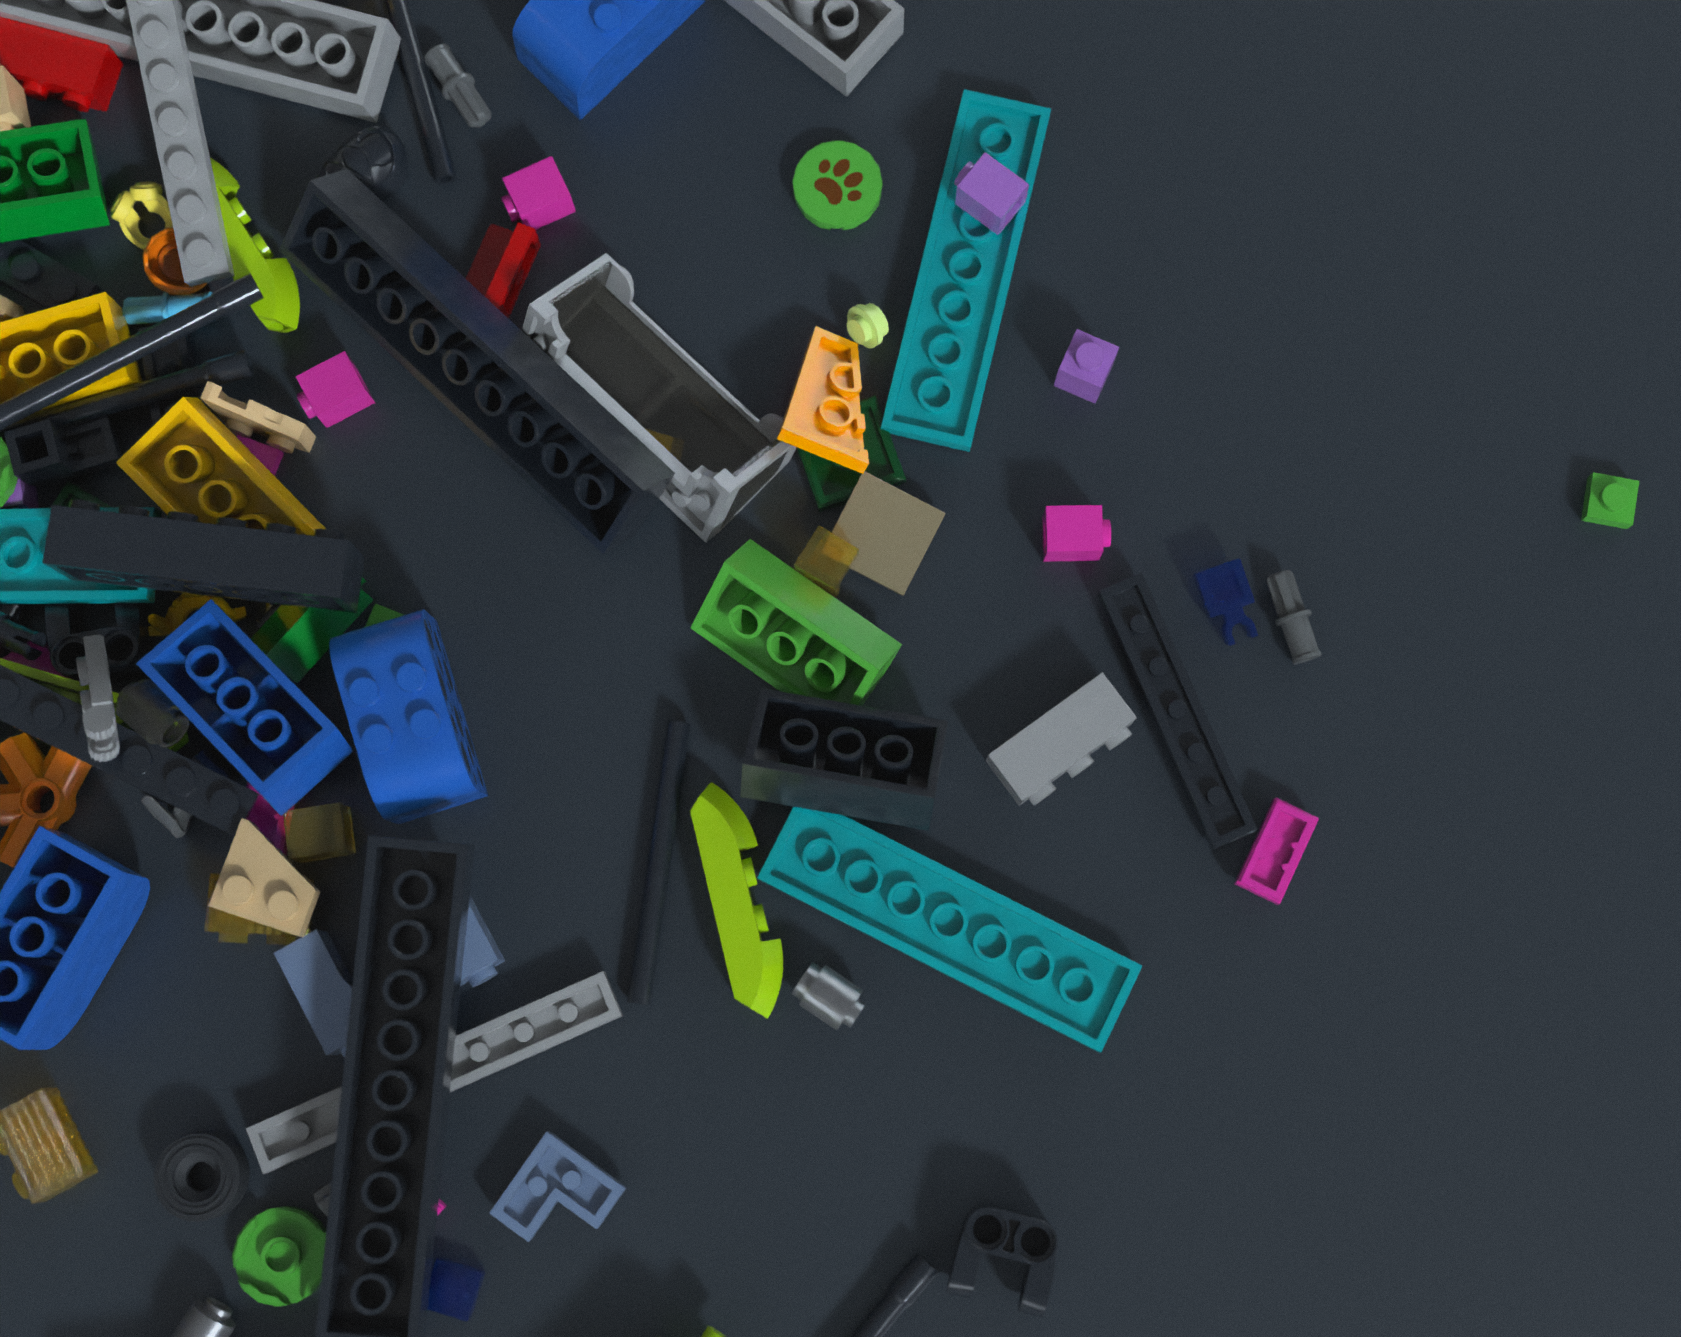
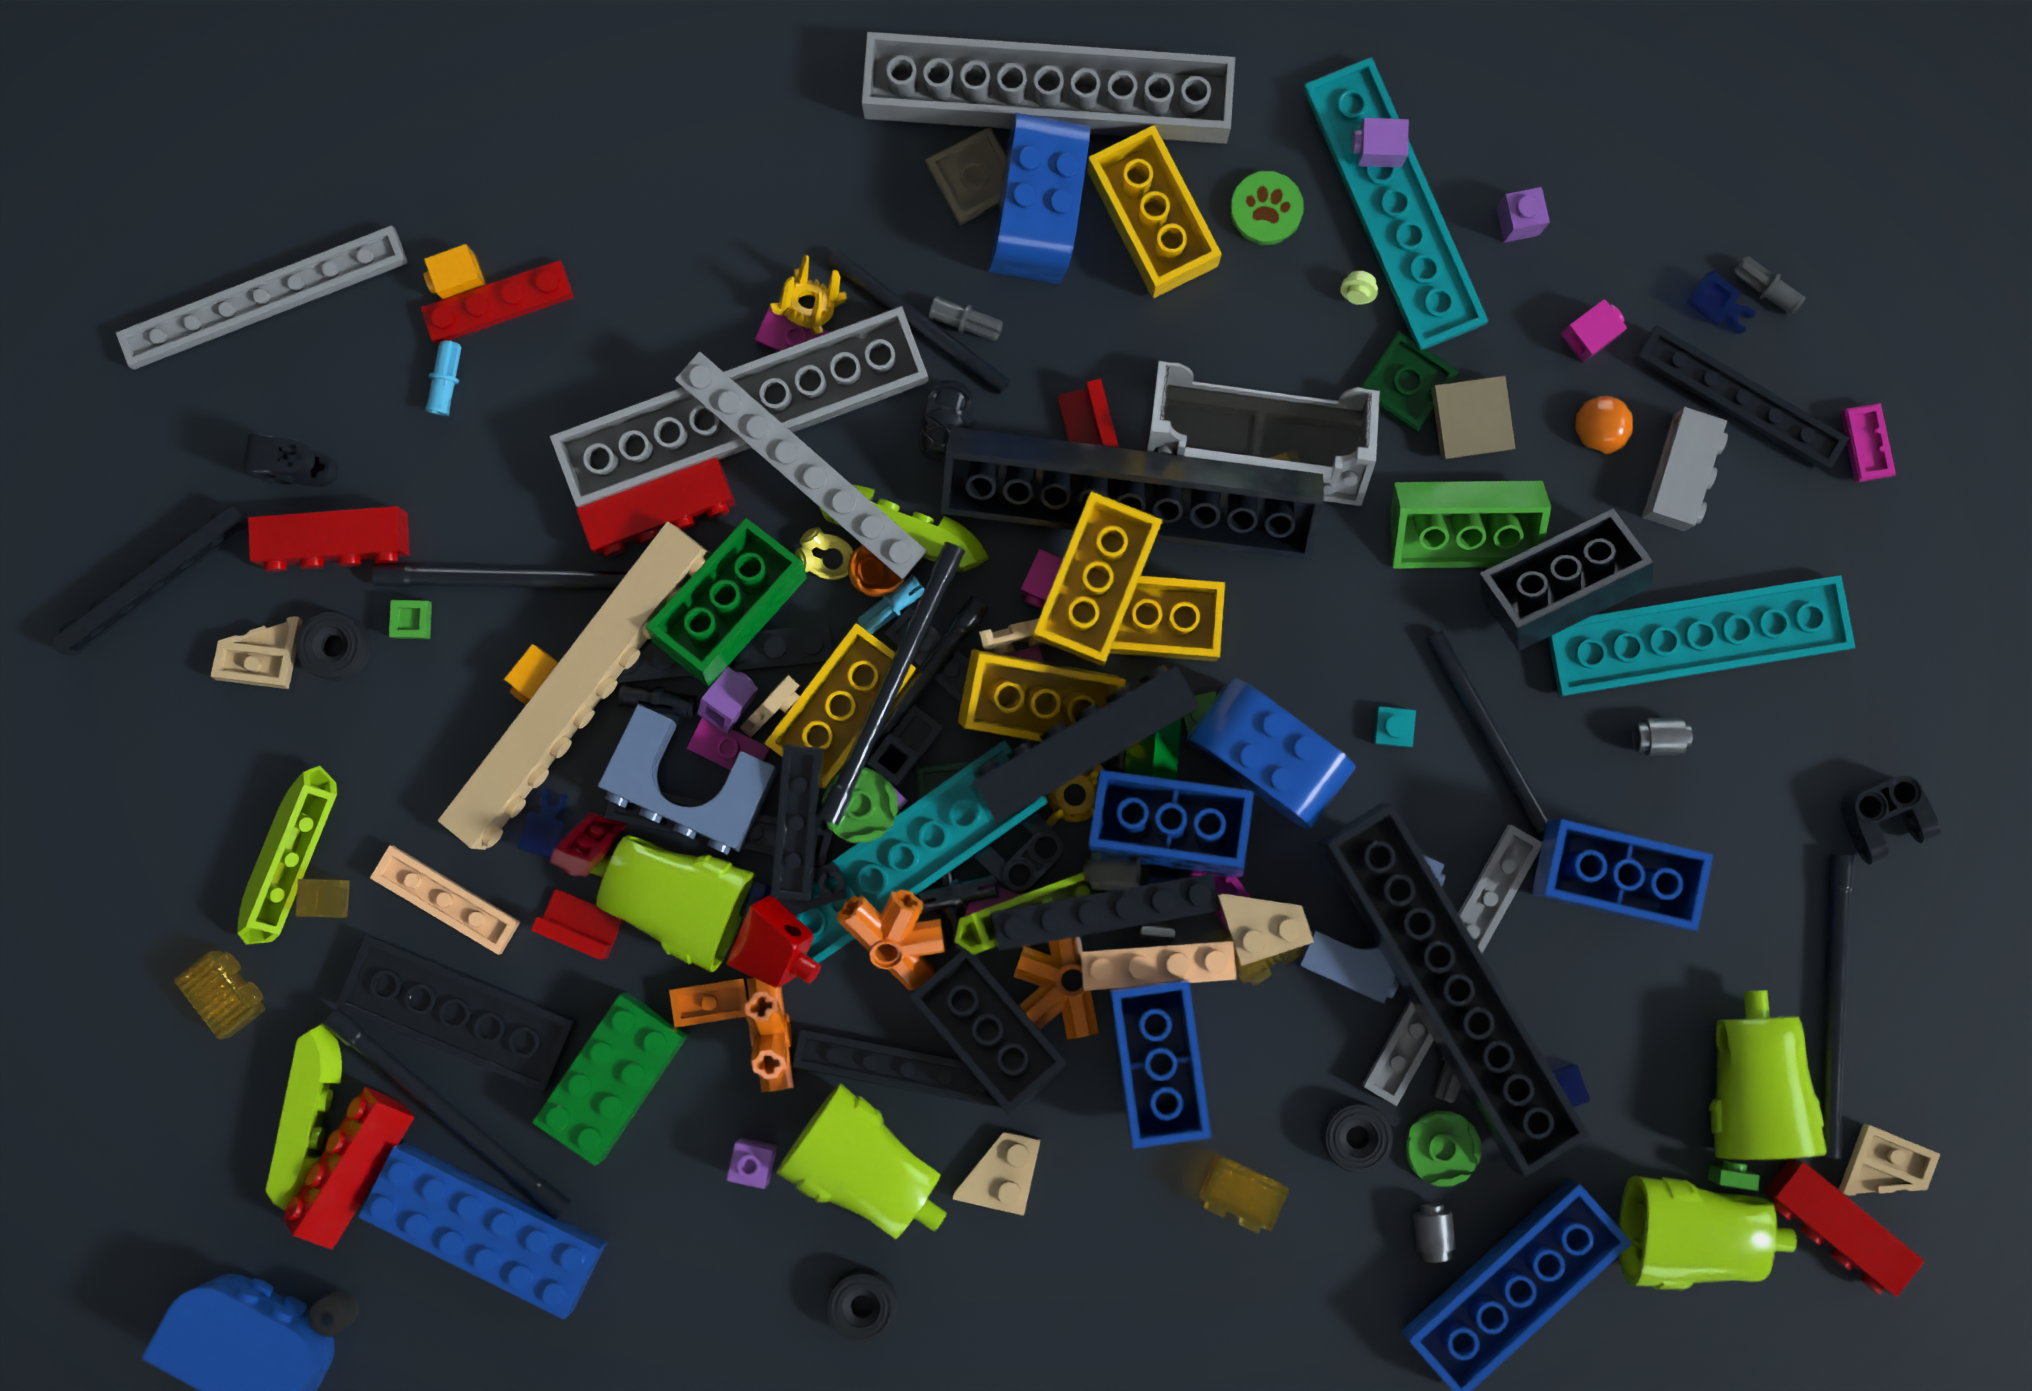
camera: 40 degrees left, 5 degrees up
(98, 701) = (1078, 885): light grey hinge -> none
(130, 843) = (1158, 964): none -> light nougat plate
(319, 832) = (1265, 870): clear yellow panel -> none
(356, 410) = (1097, 579): none -> yellow brick
(398, 492) = (1173, 619): none -> yellow brick
(537, 195) = (1078, 354): dark pink brick -> none
(552, 1176) = (1573, 975): sand blue plate -> none
(567, 787) = (1394, 727): none -> teal plate
(656, 1098) = (1622, 875): none -> blue brick
(714, 106) = (1153, 211): none -> yellow brick
(752, 964) = (1522, 690): lime brick -> none
(826, 403) = (1376, 359): light orange wing -> none
(826, 560) = (1454, 461): clear yellow panel -> none
(1015, 637) = (1604, 424): none -> orange hair
(1610, 500) = (1910, 67): bright green plate -> none

